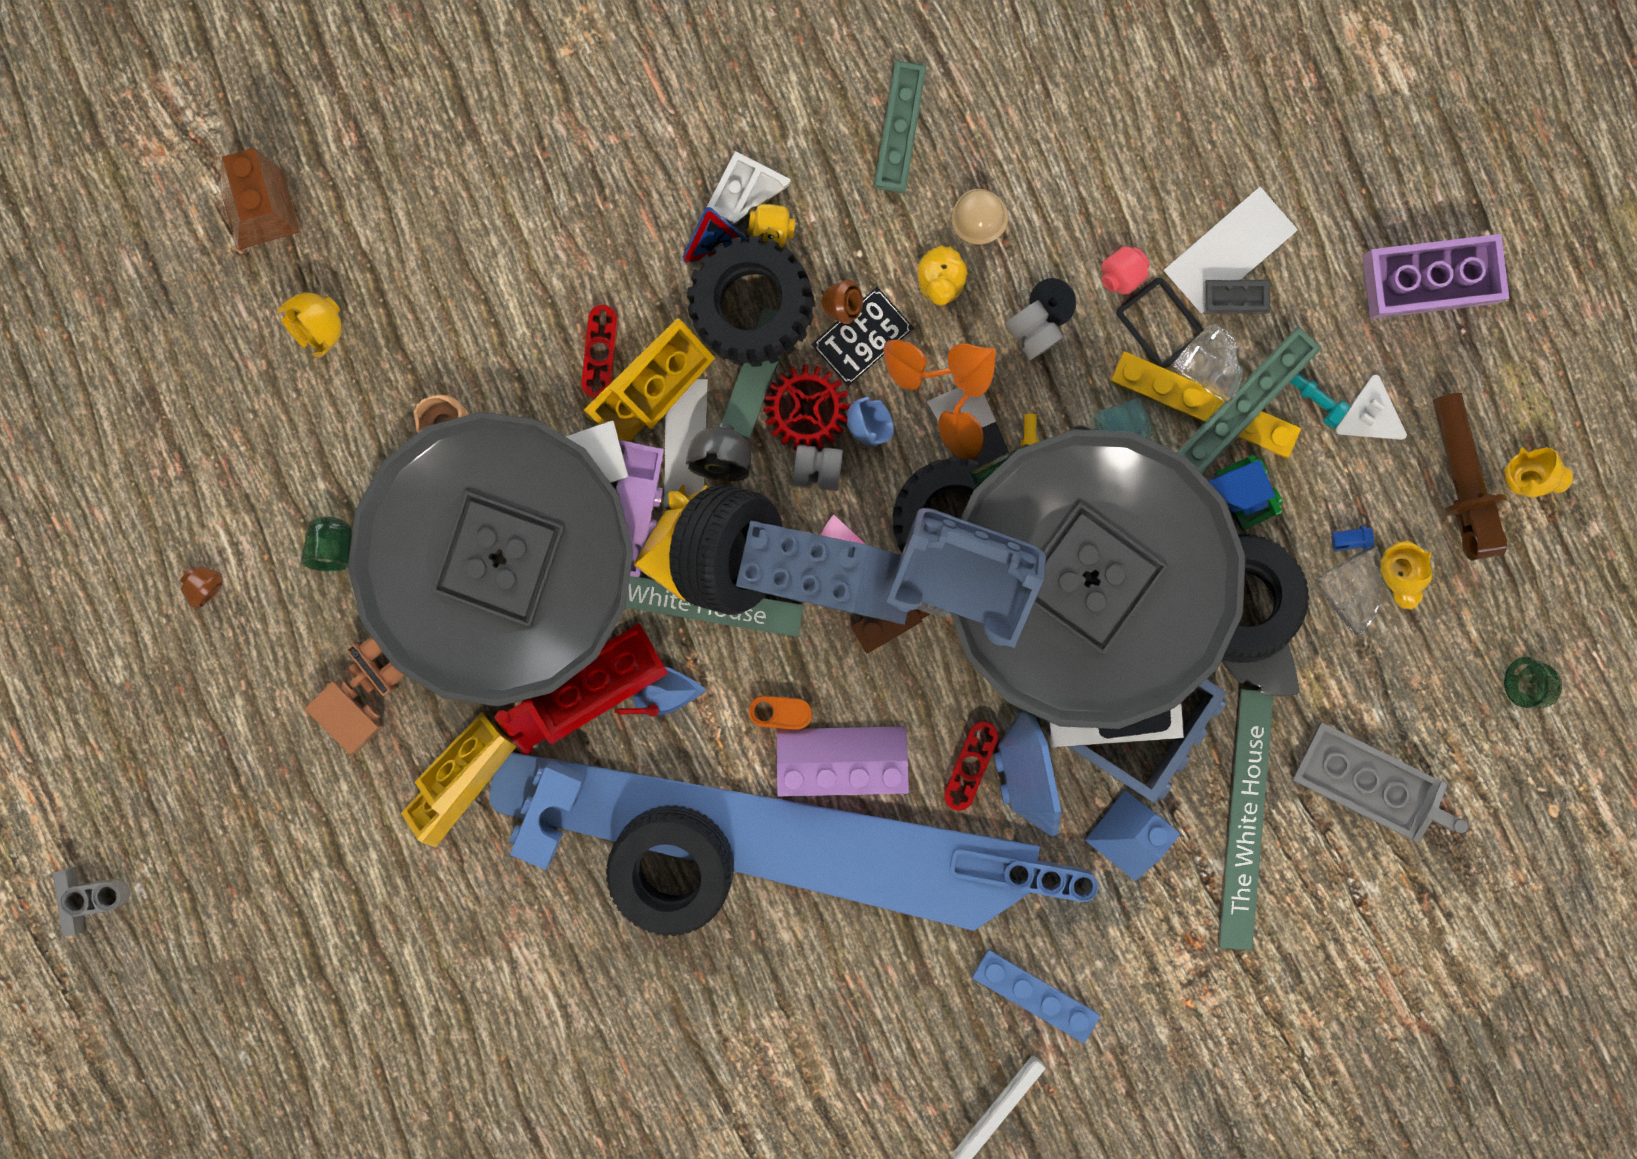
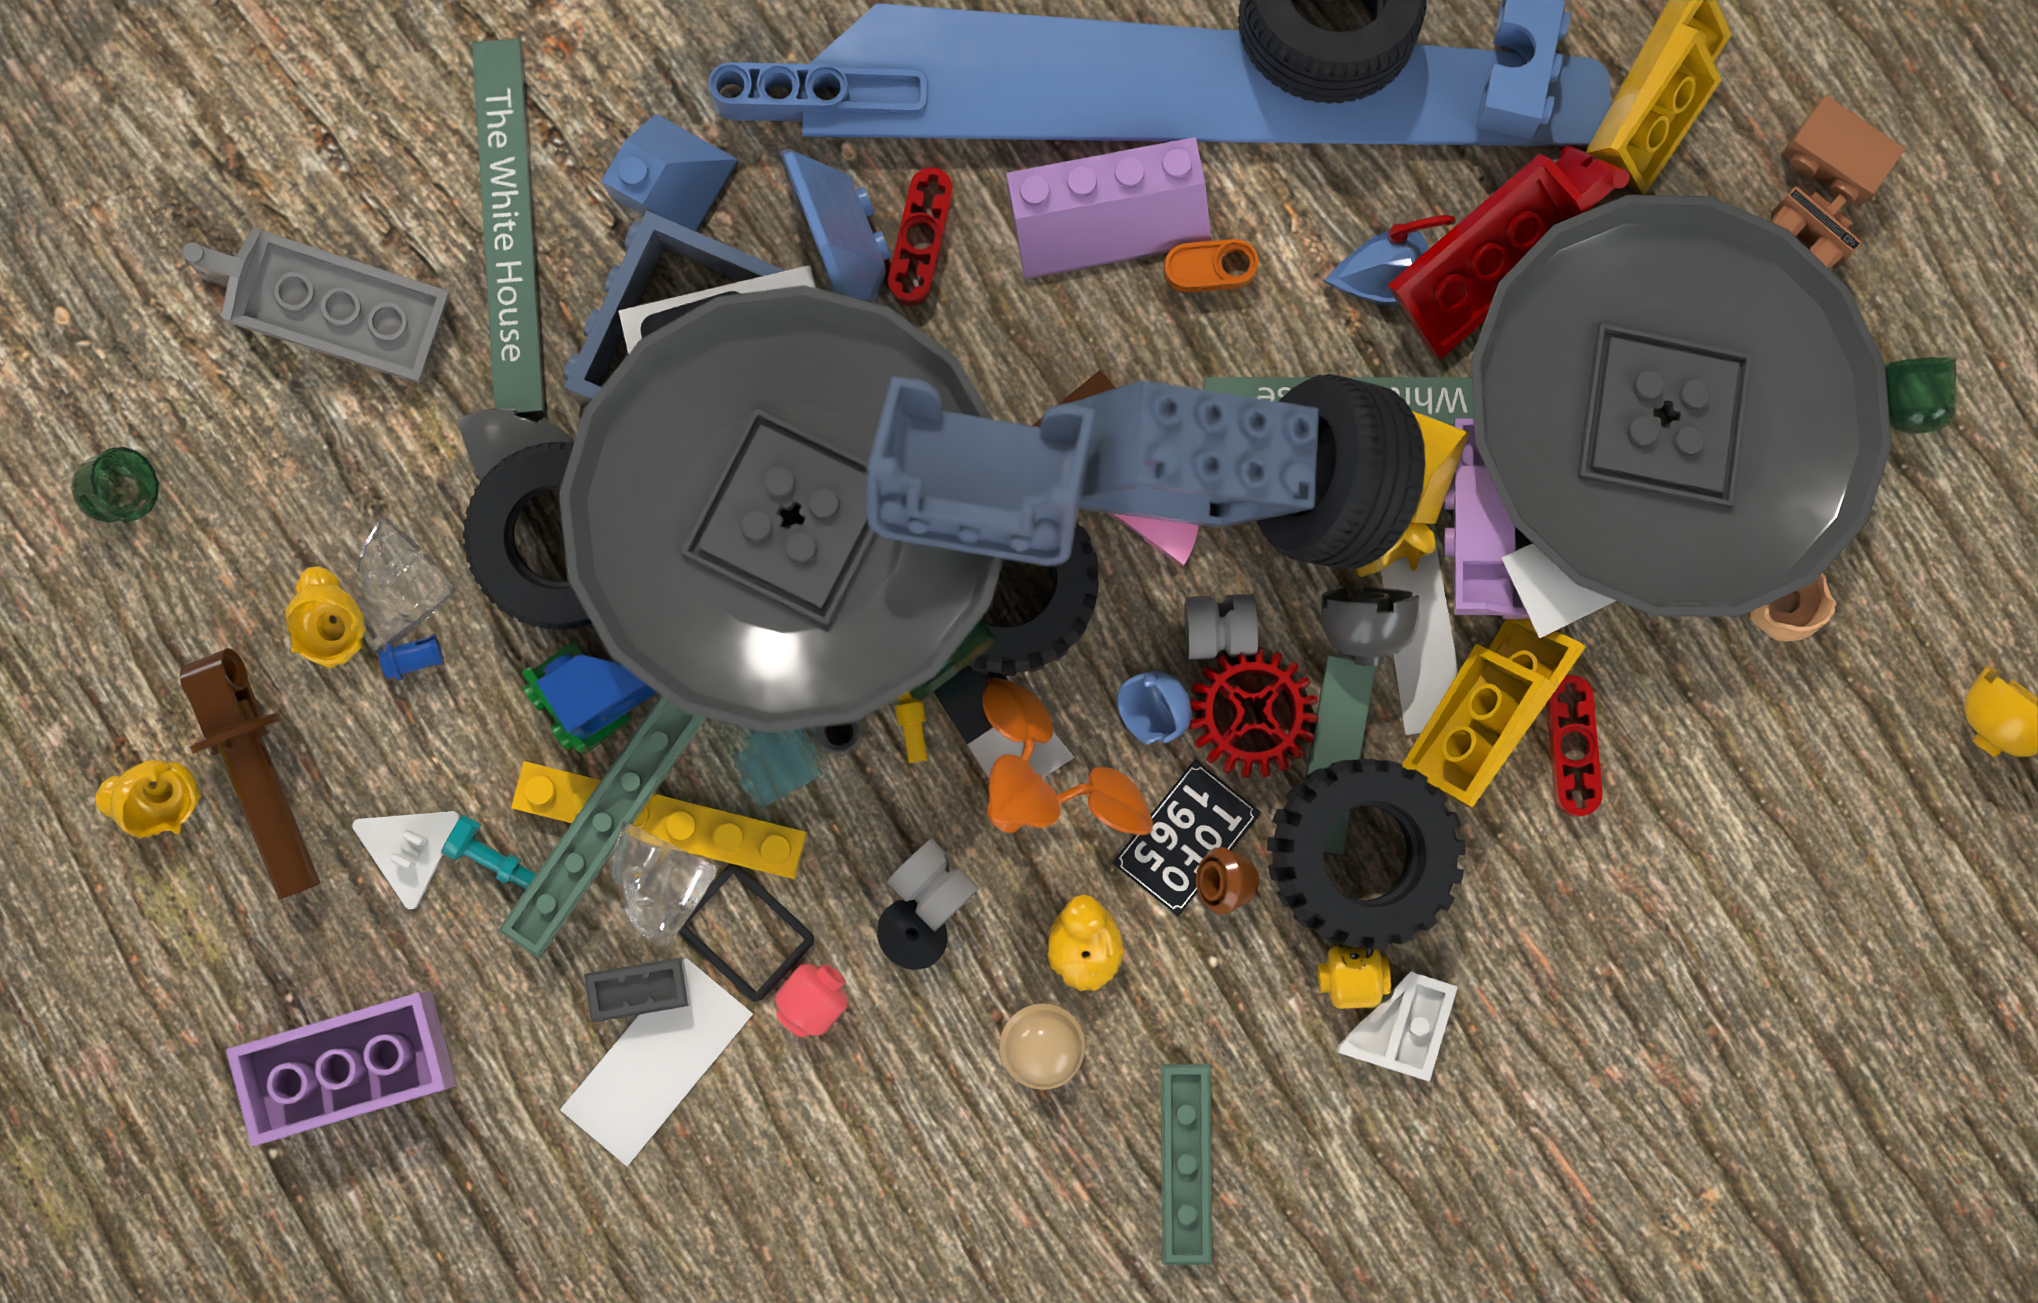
camera: 170 degrees right, 5 degrees down
(709, 233) = (1443, 947): piece -> none

